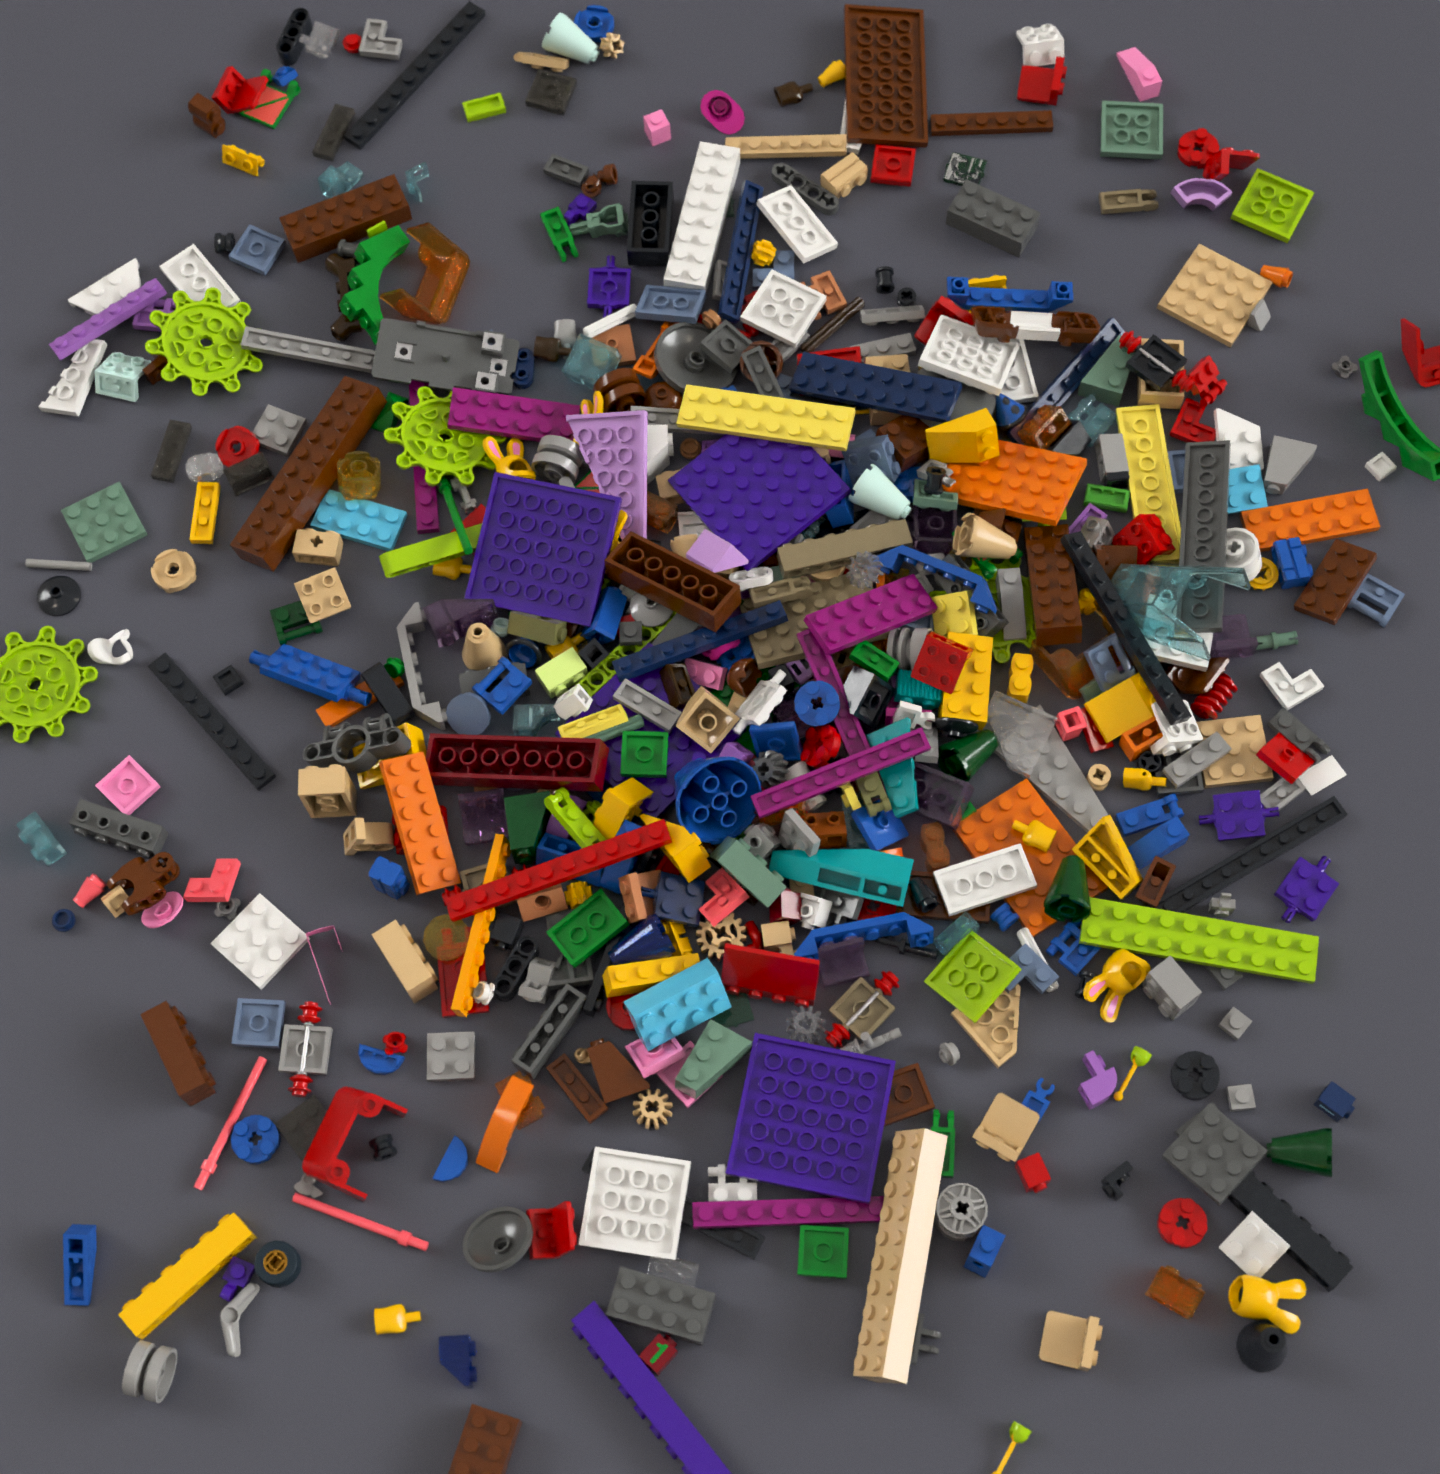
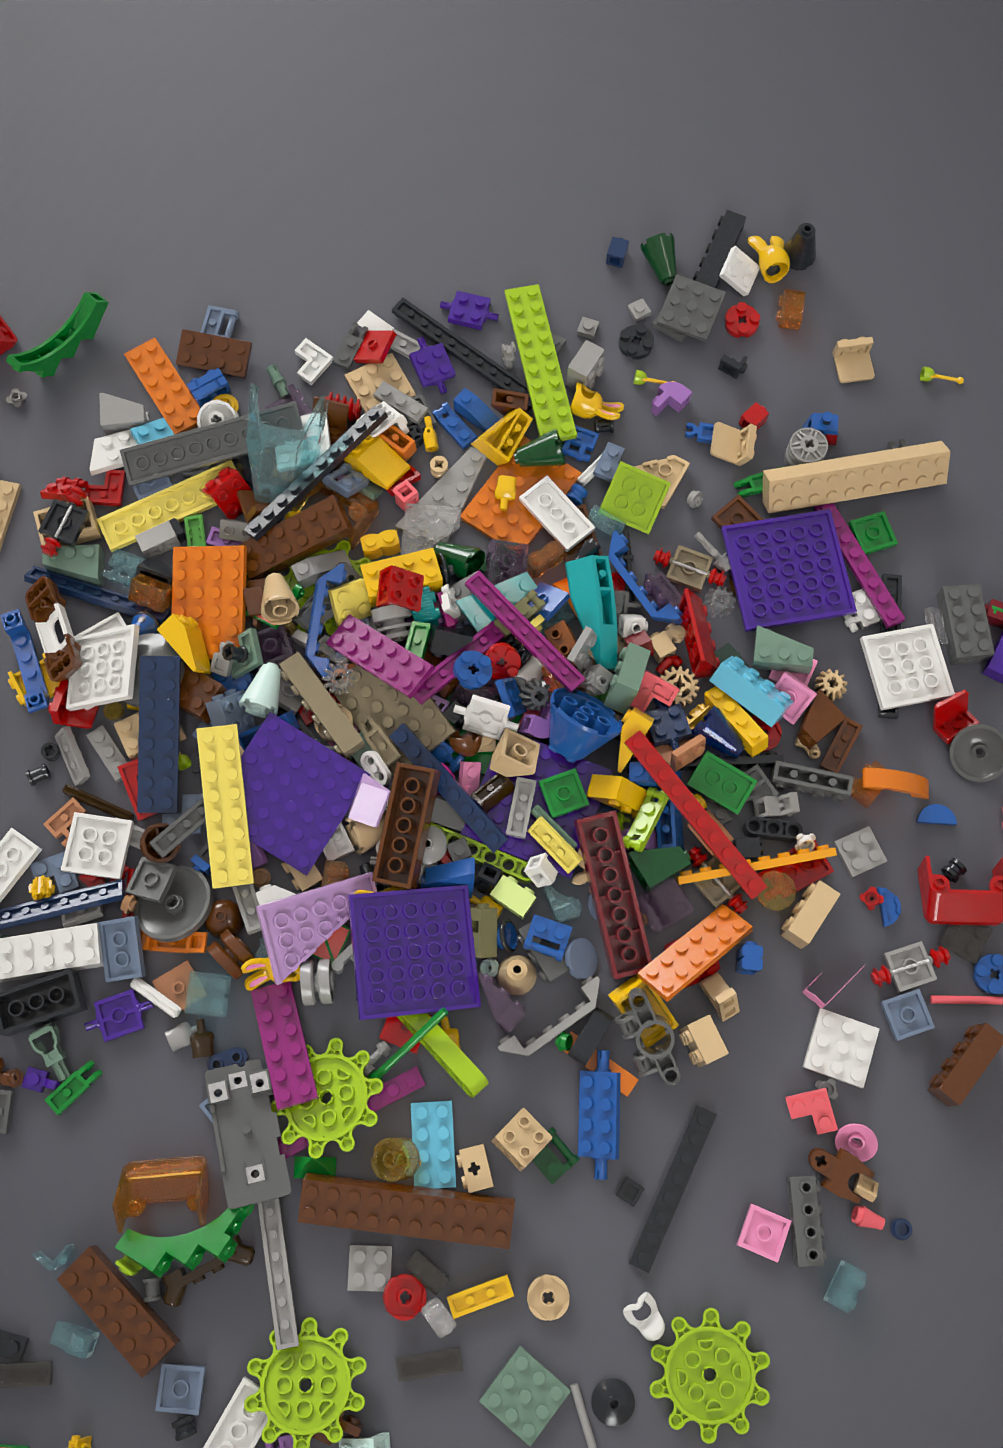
camera: 115 degrees left, 5 degrees up
(513, 463) = (339, 1020): yellow piece -> none
(1380, 466) = (99, 351): white tile -> none

